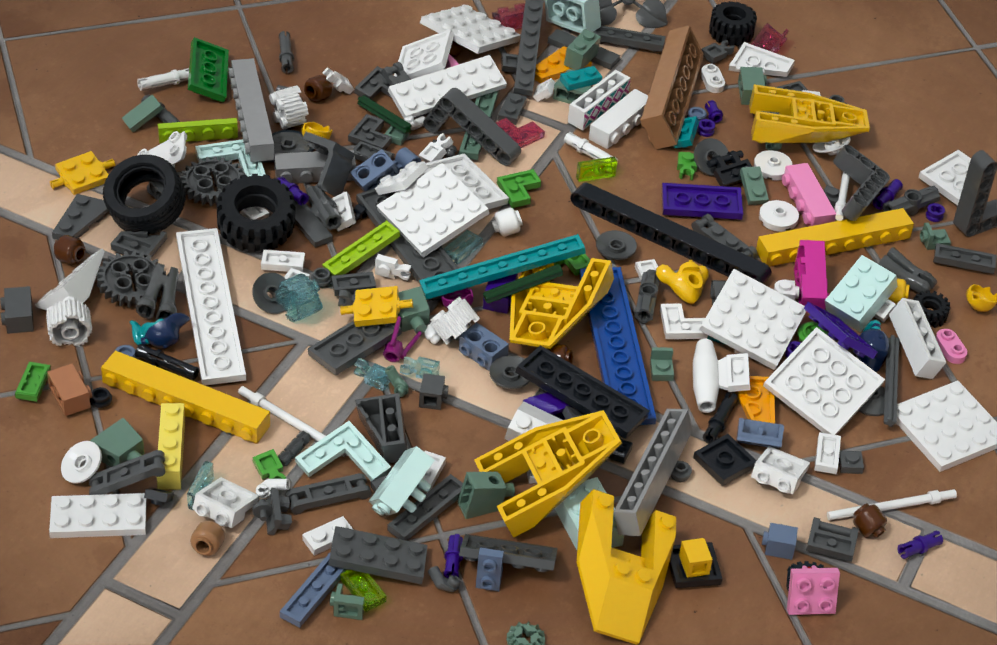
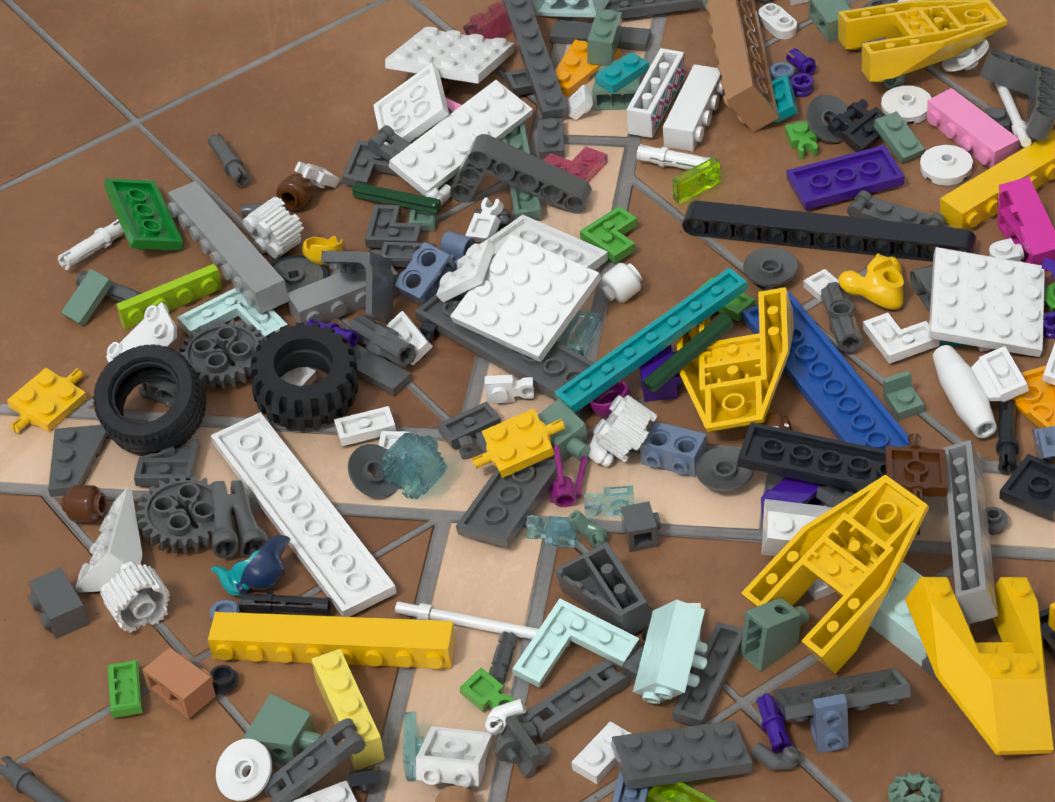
camera: 10 degrees left, 0 degrees up
(322, 276) = (424, 426): dark grey plate -> none
(362, 249) = (459, 378): lime plate -> none
(636, 417) = (917, 468): none -> reddish brown plate

